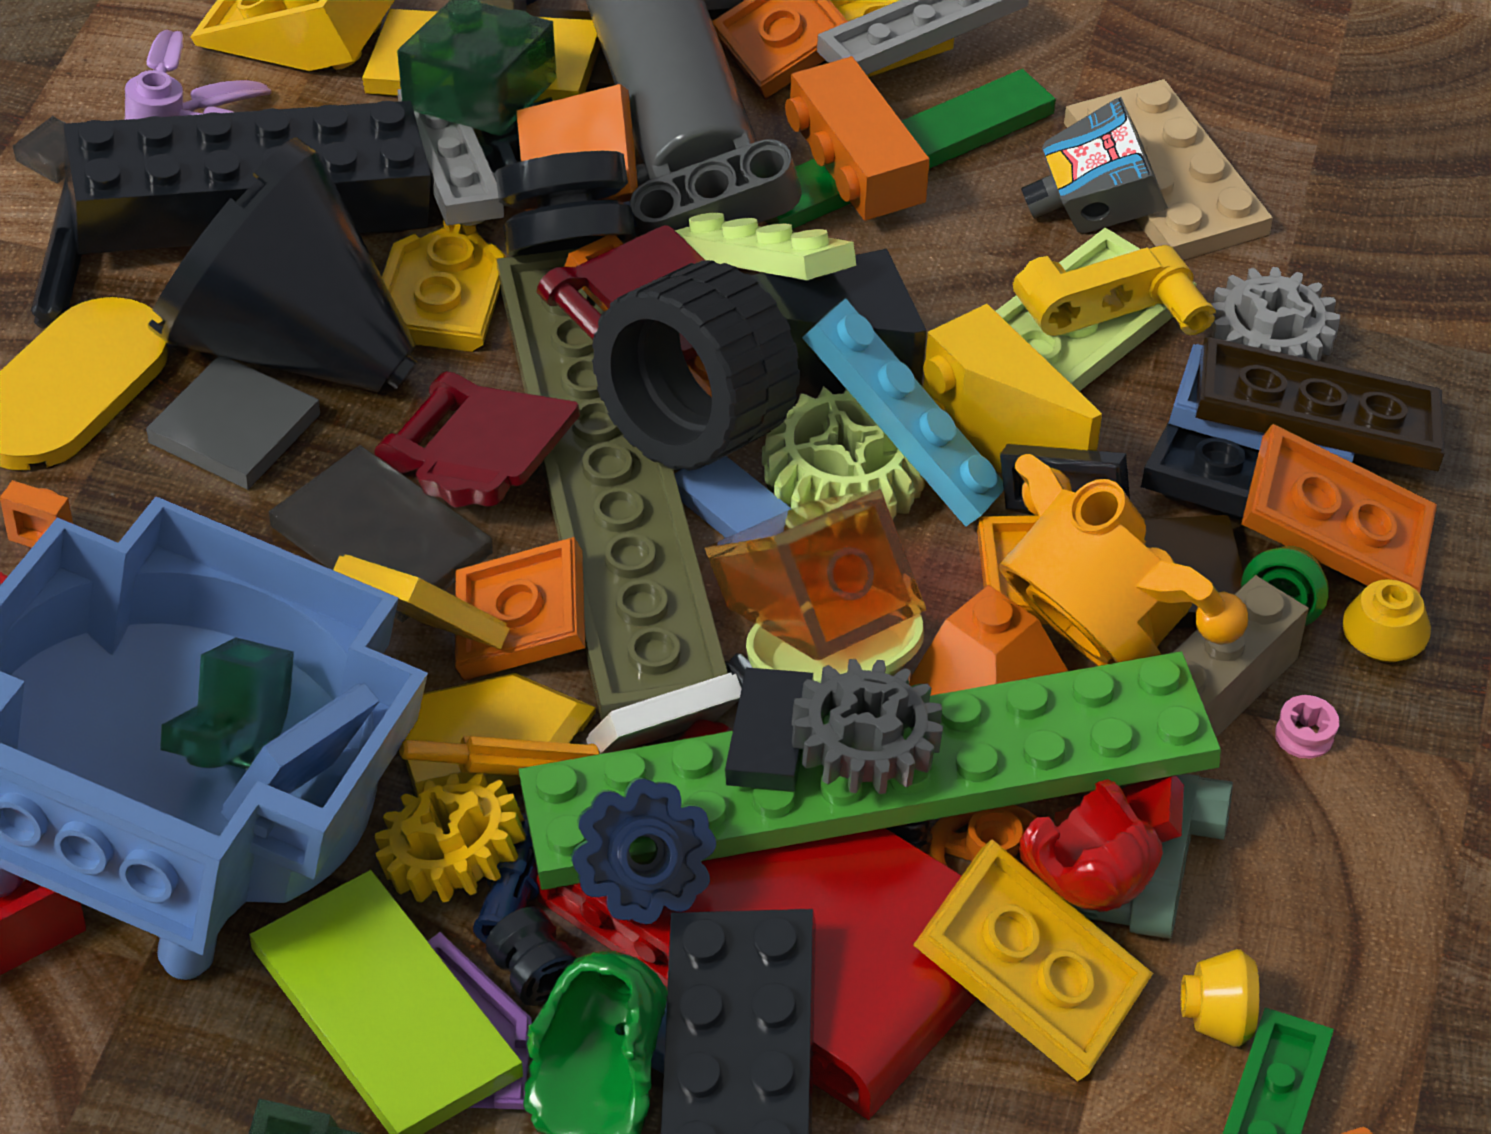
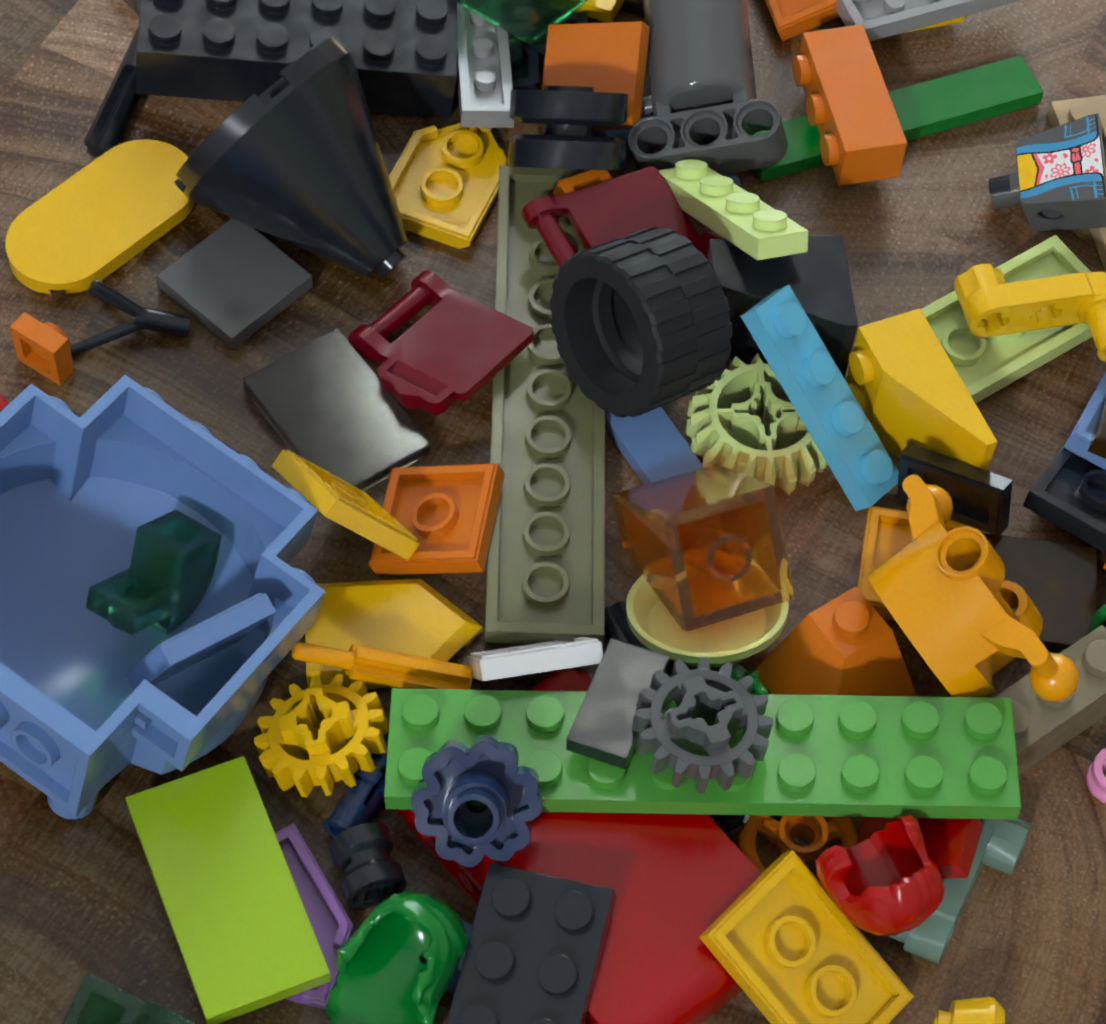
camera: 10 degrees right, 10 degrees up
(142, 471) = (145, 318): none -> black plant

